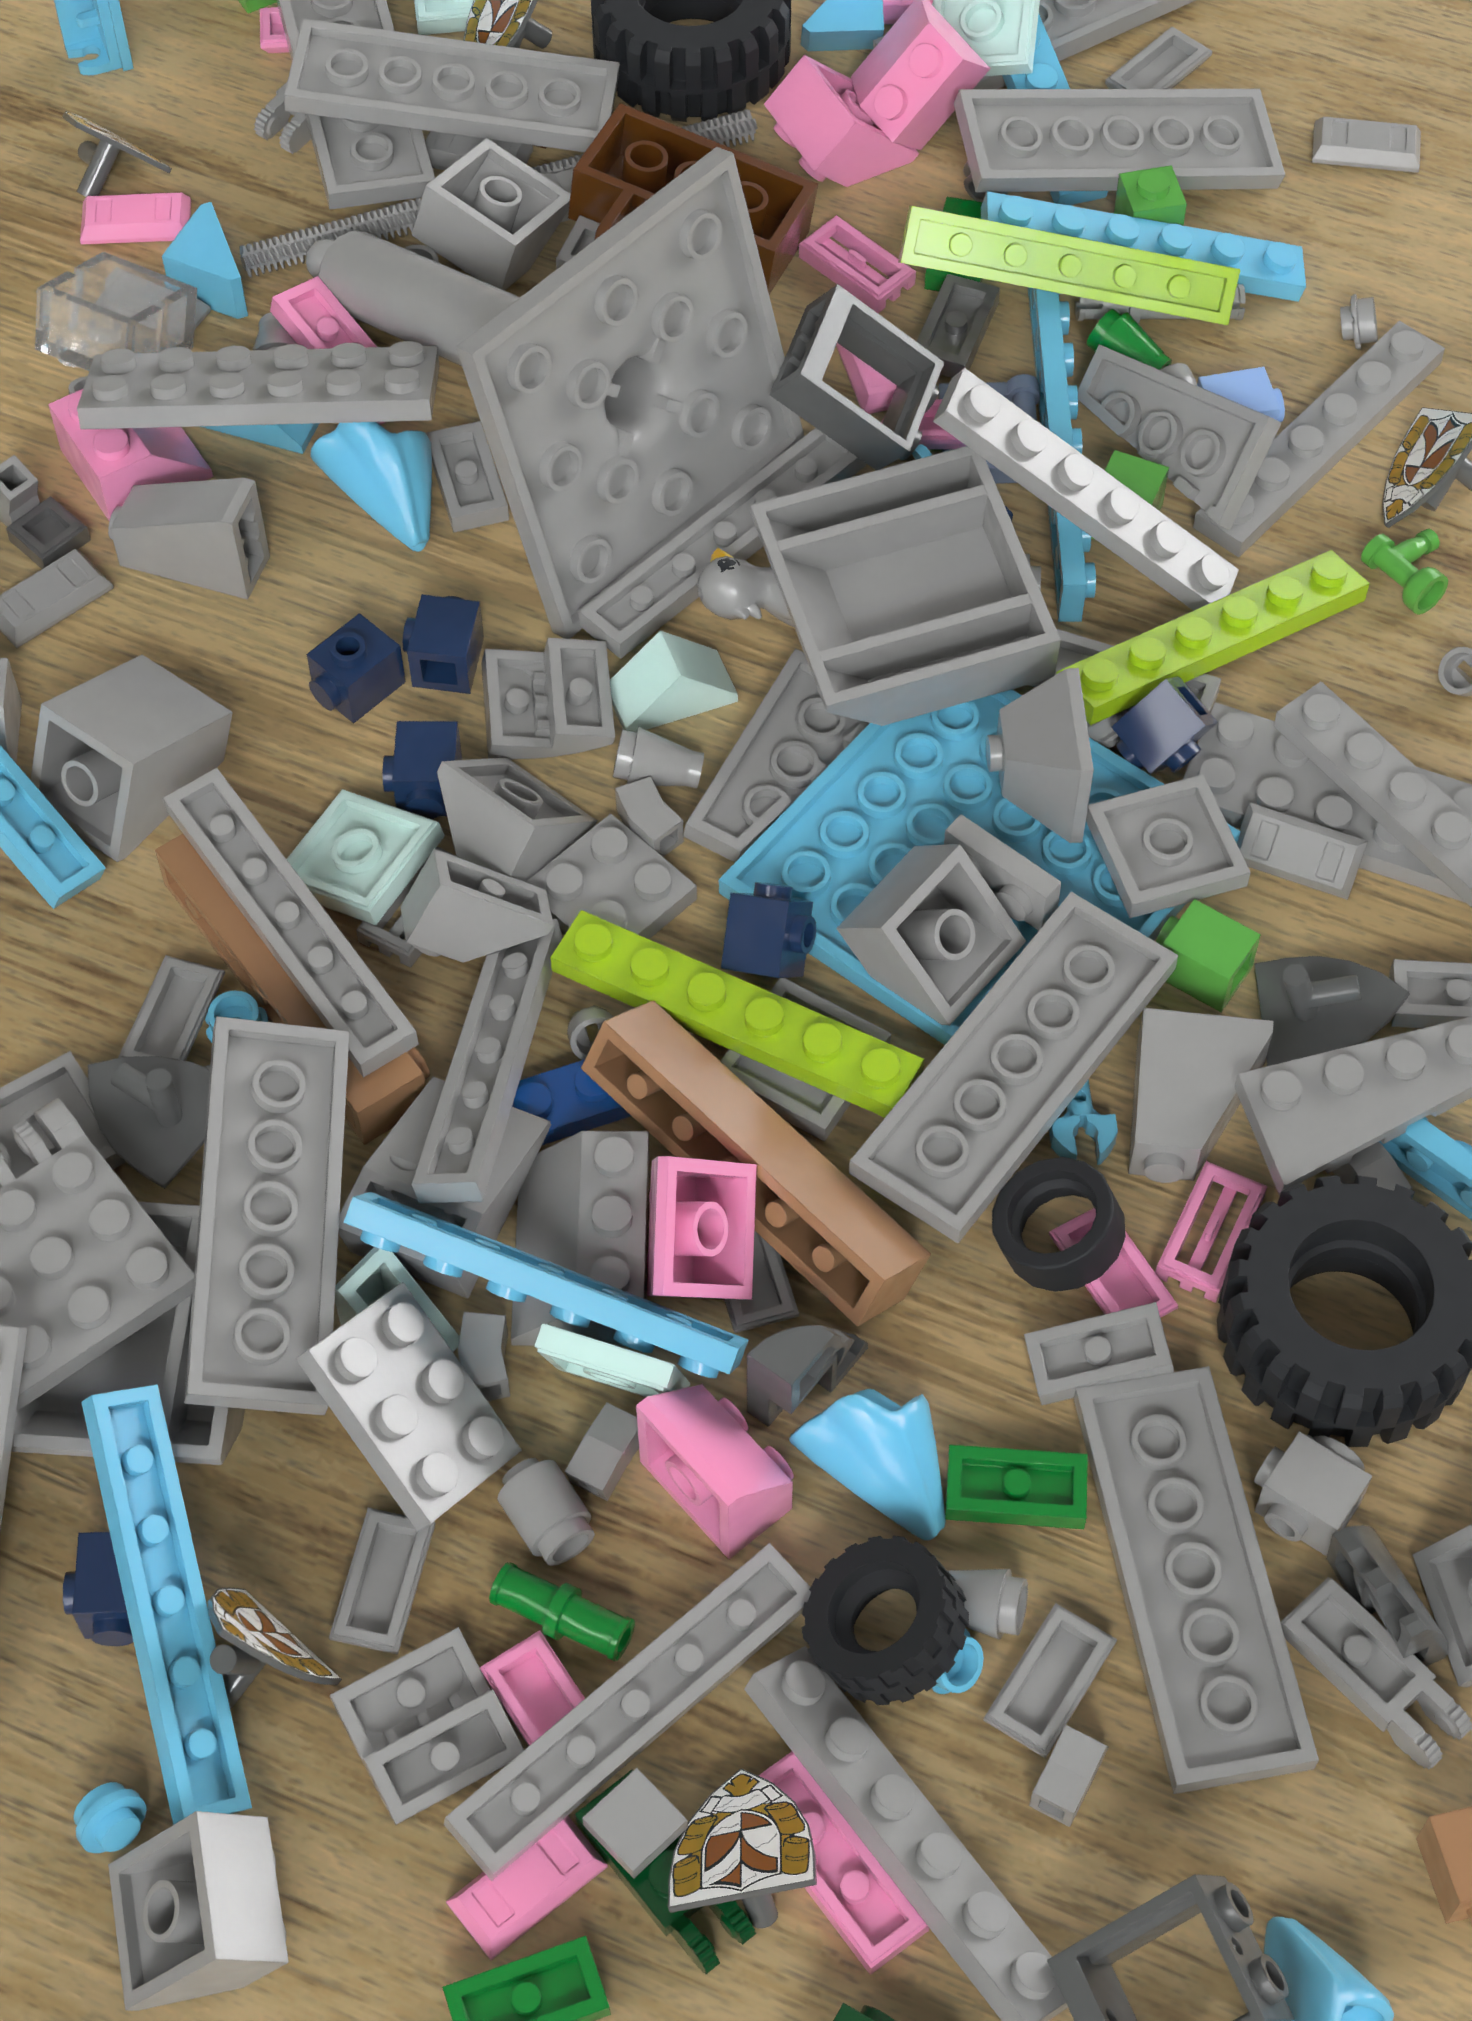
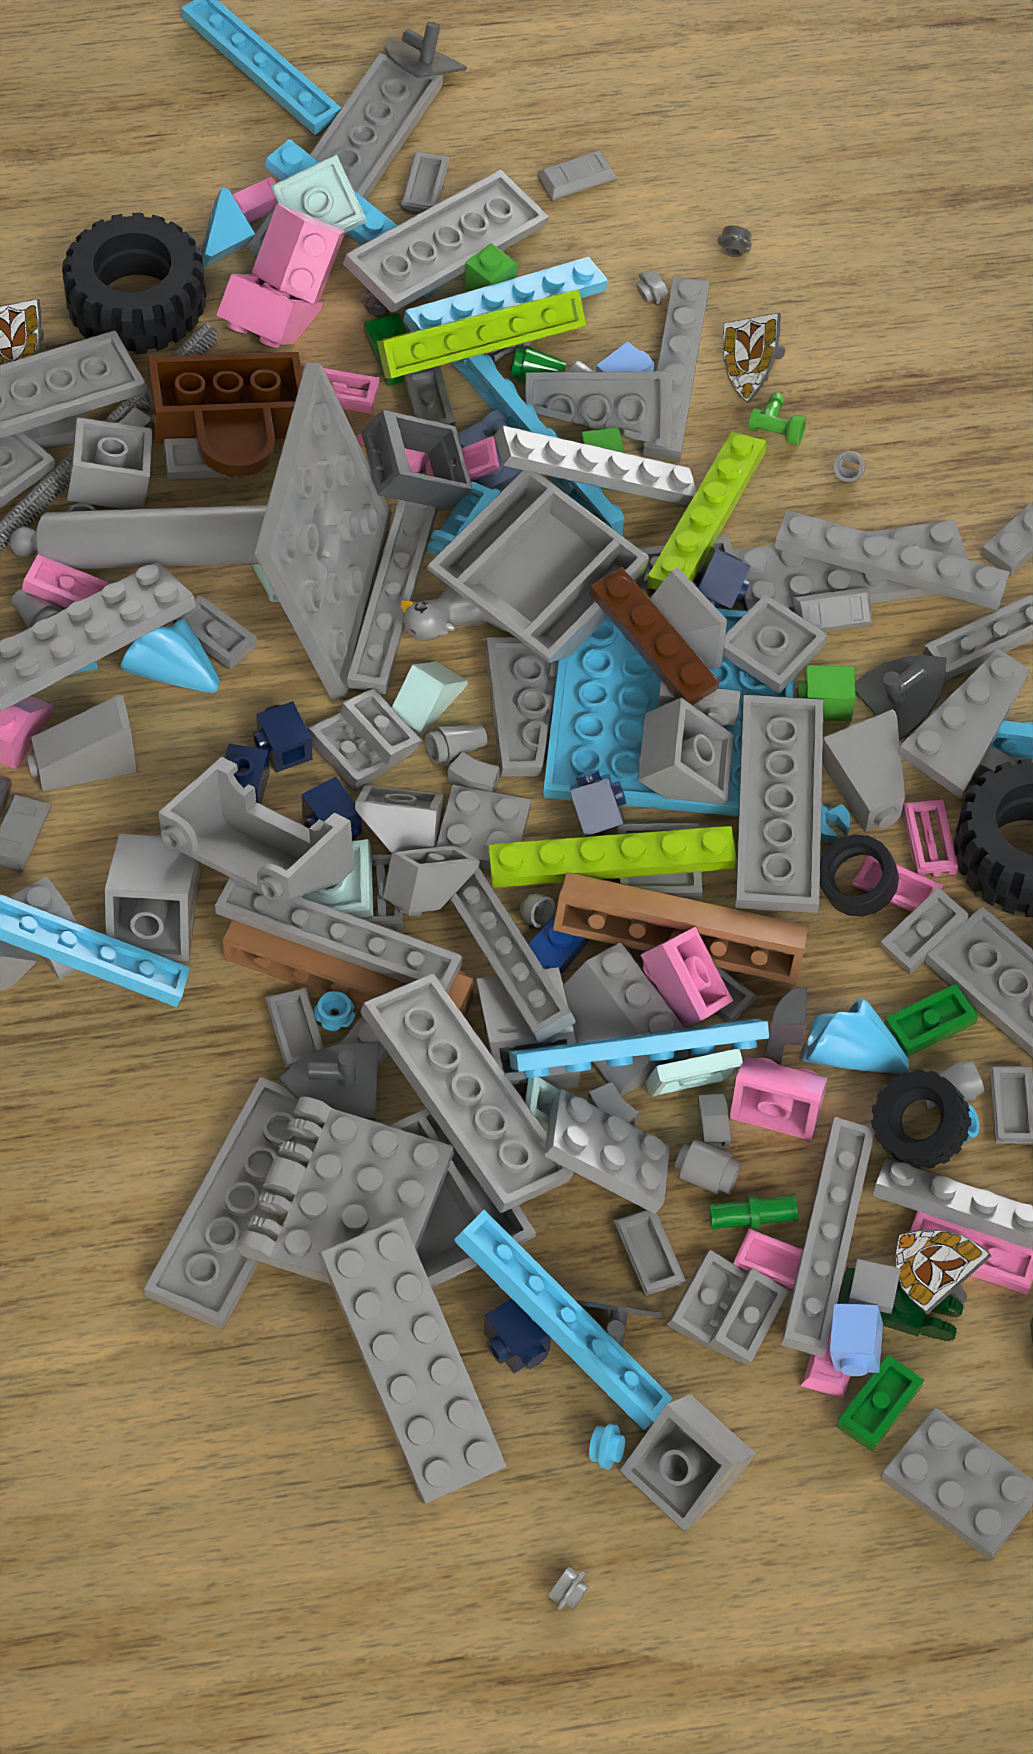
camera: 35 degrees left, 0 degrees up
(273, 740) = (252, 844): none -> light grey windscreen
(545, 1885) = (856, 1339): none -> light blue brick
(987, 749) = (653, 637): none -> reddish brown plate

